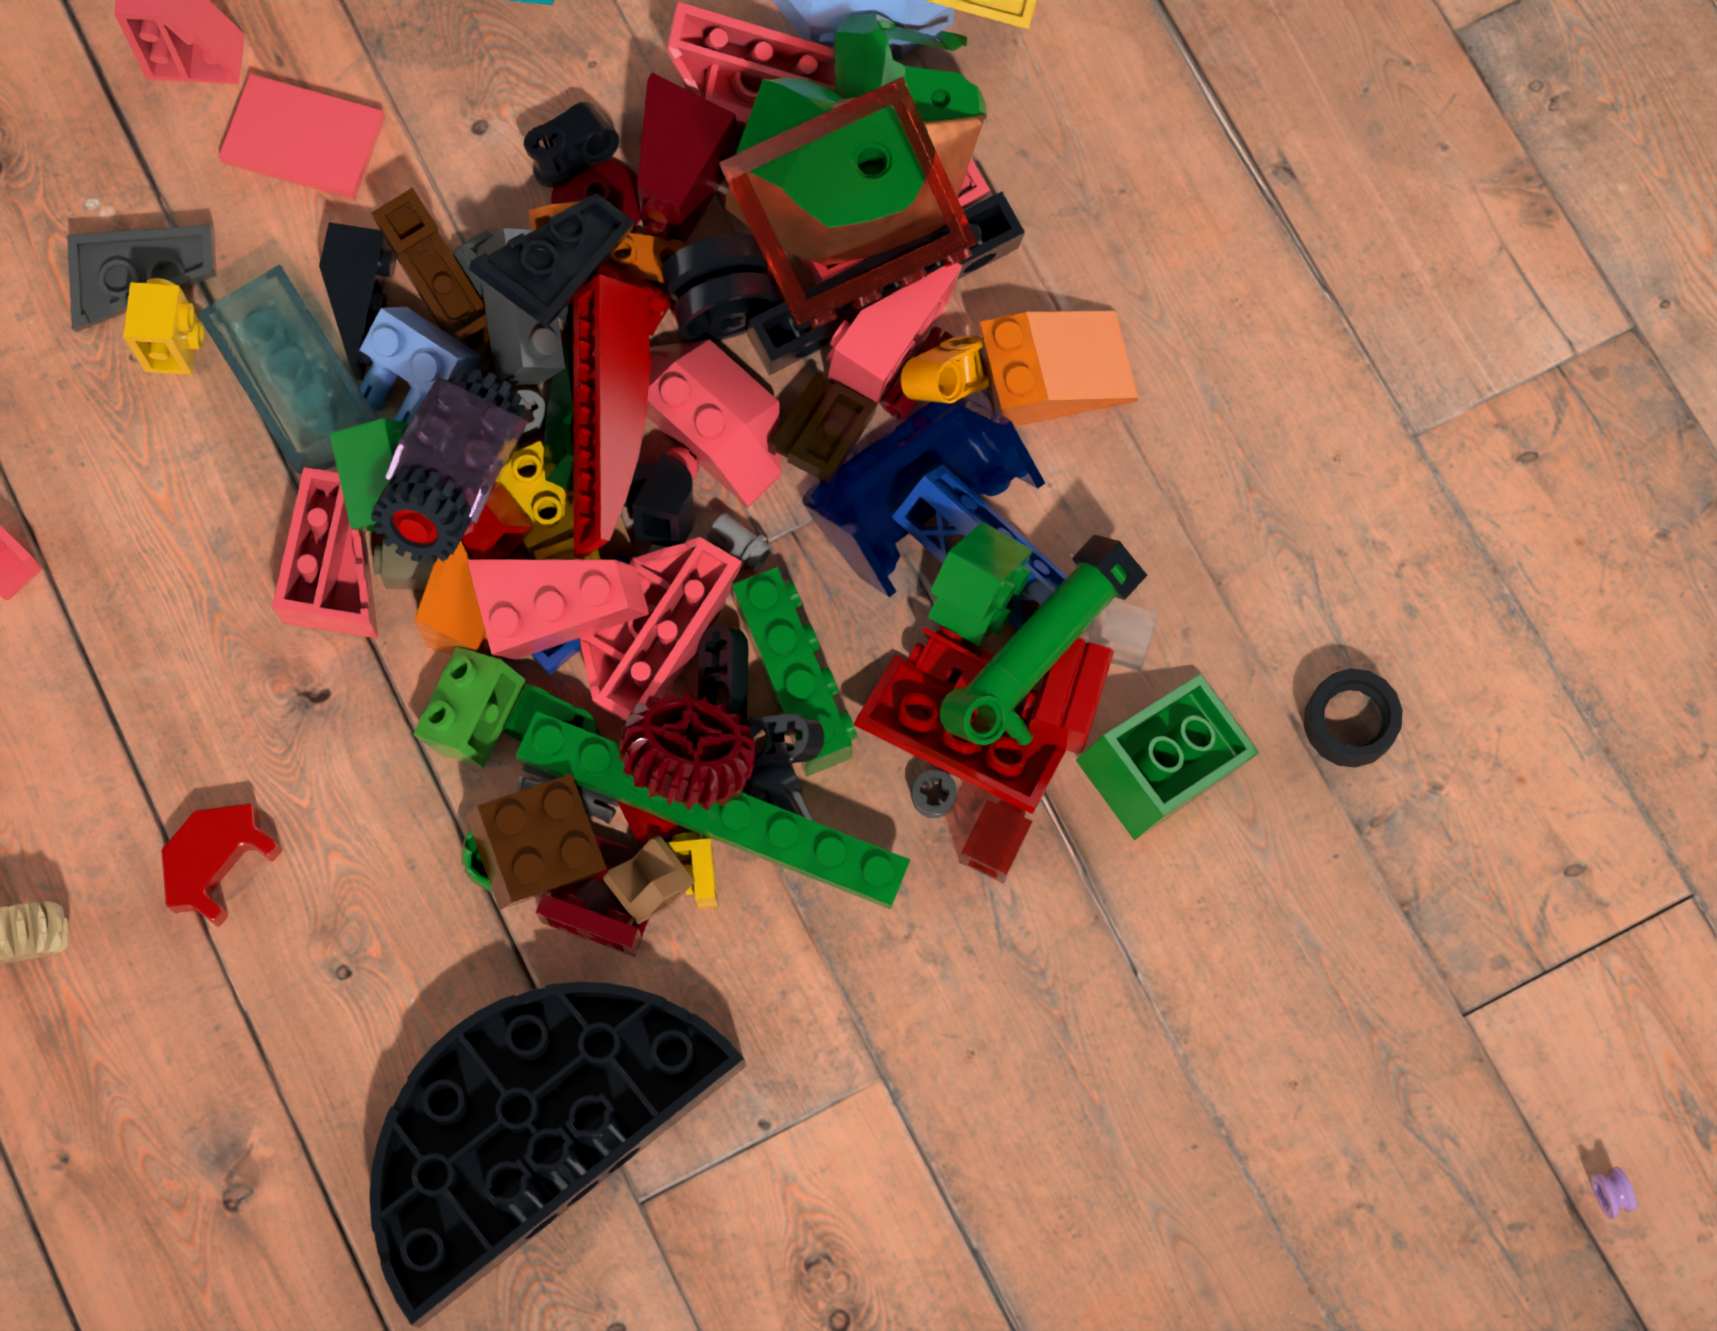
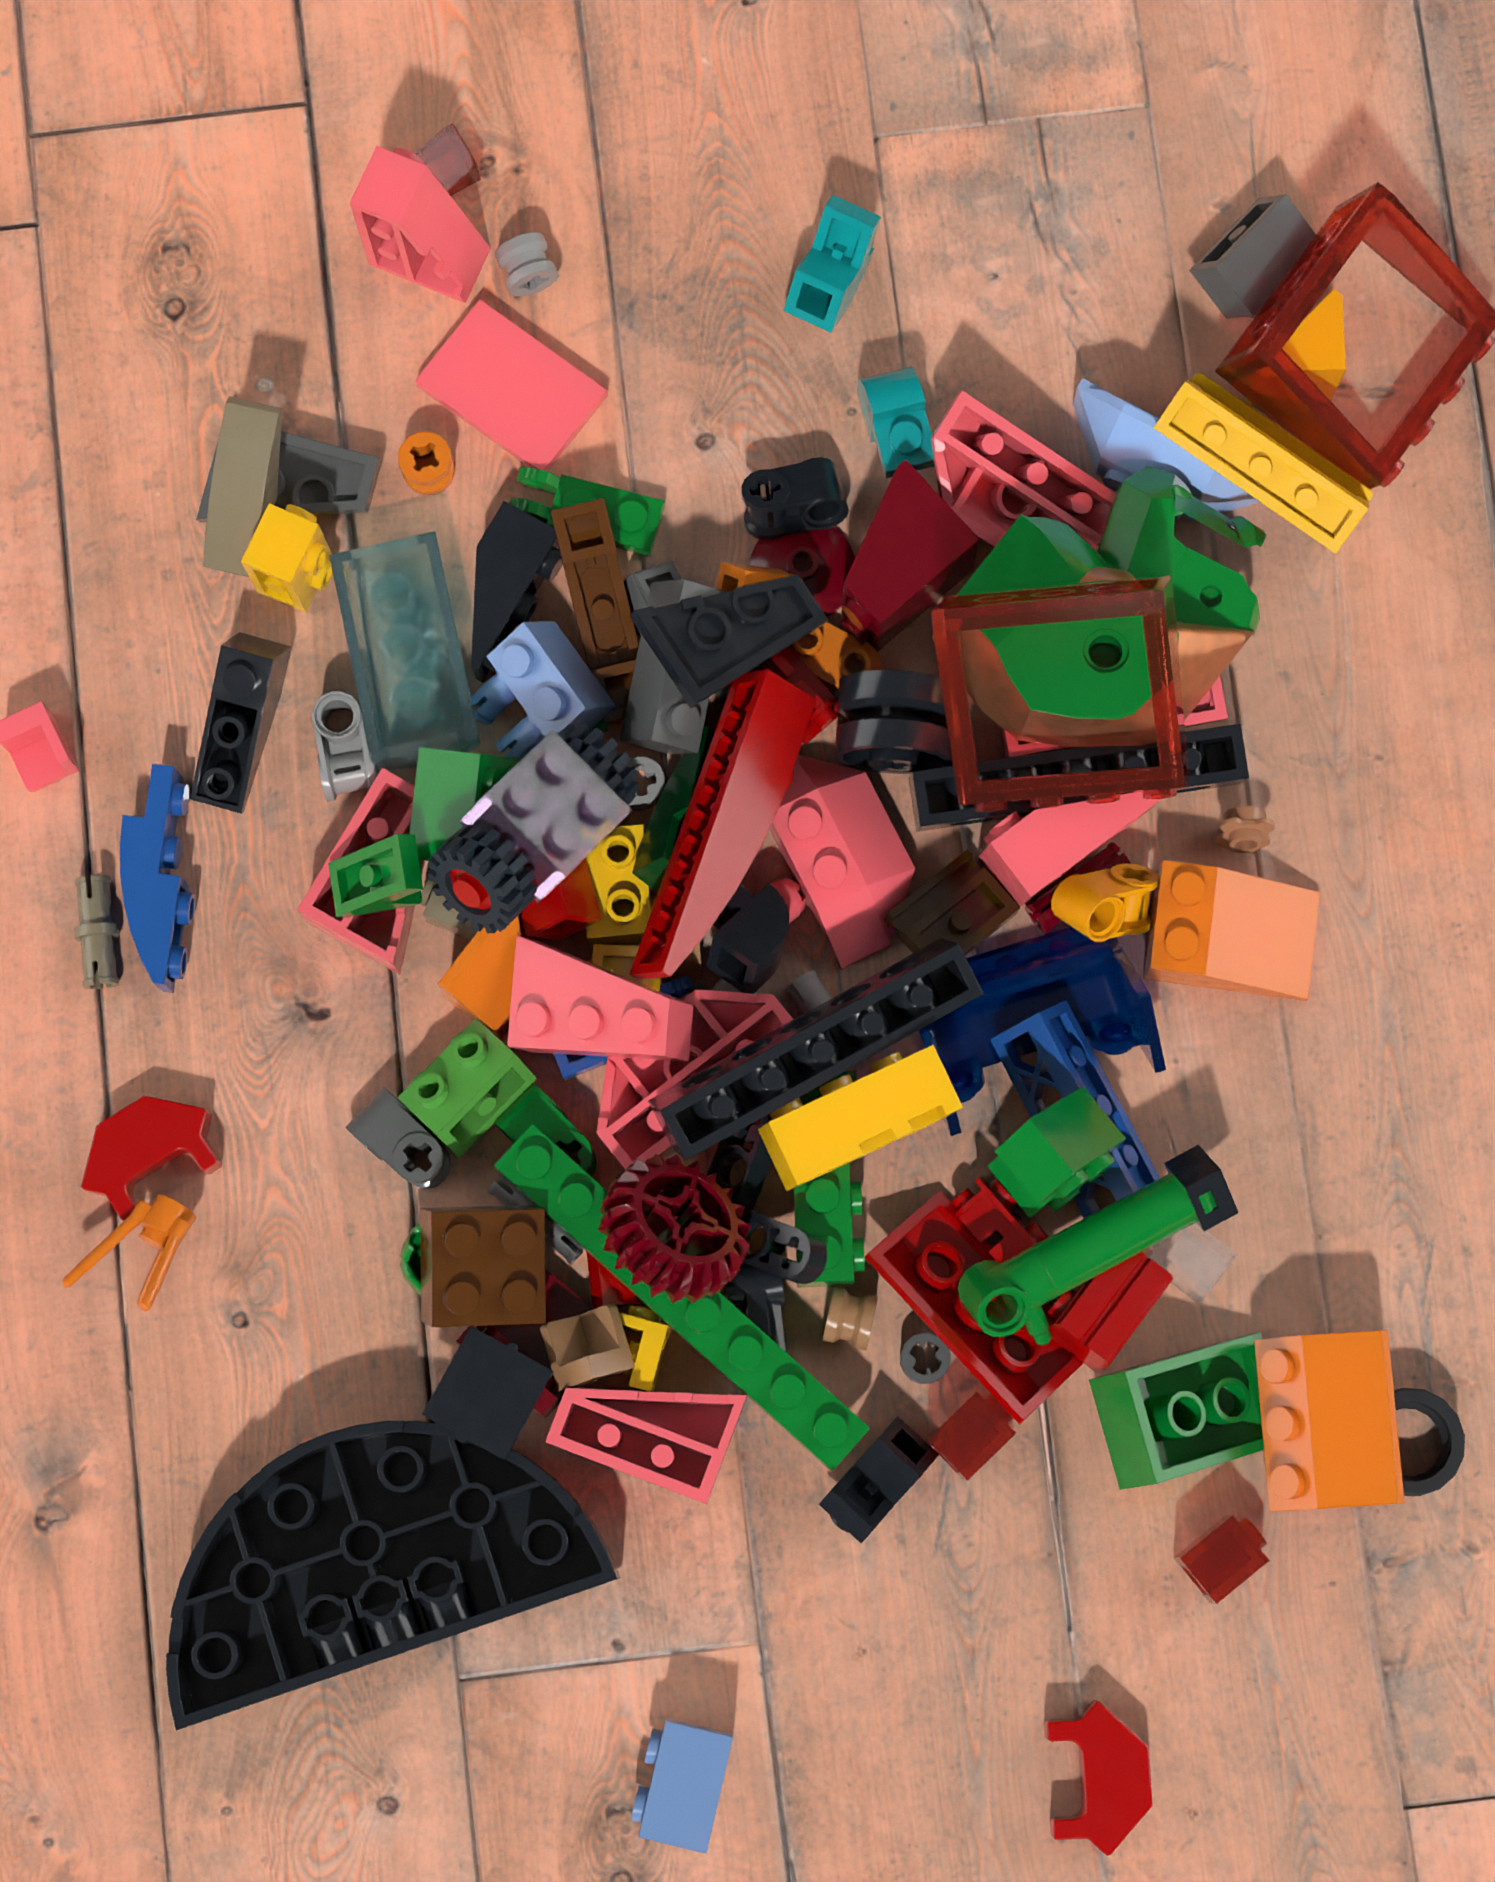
camera: 25 degrees right, 5 degrees up
(100, 278) = (241, 481): none -> dark tan slope
(105, 693) = (96, 932): none -> dark tan pin
(143, 643) = (153, 899): none -> blue slope
(166, 478) = (239, 719): none -> black slope
(250, 916) = (163, 1228): none -> orange plant
(258, 228) = (430, 474): none -> orange wheel
(267, 473) = (342, 755): none -> light grey piece
(279, 33) = (526, 264): none -> light grey wheel
(332, 552) = (377, 877): none -> green slope
(422, 768) = (395, 1136): none -> dark grey piece
(443, 202) = (631, 515): none -> green hinge
(578, 944) = (487, 1393): none -> black piece
(631, 50) = (897, 419): none -> teal brick
(728, 935) = (651, 1435): none -> coral wedge
(750, 561) = (815, 1047): none -> black brick
(808, 603) = (859, 1116): none -> yellow wedge
(860, 781) = (850, 1318): none -> medium nougat wheel
(863, 1212) = (684, 1784): none -> medium blue brick
(932, 902) = (878, 1480): none -> black brick
(1036, 280) = (1245, 829): none -> nougat plate
(1216, 1077) = (1112, 1777): none -> red piece
(1239, 864) = (1223, 1557): none -> clear red brick
(1283, 719) = (1329, 1421): none -> orange slope

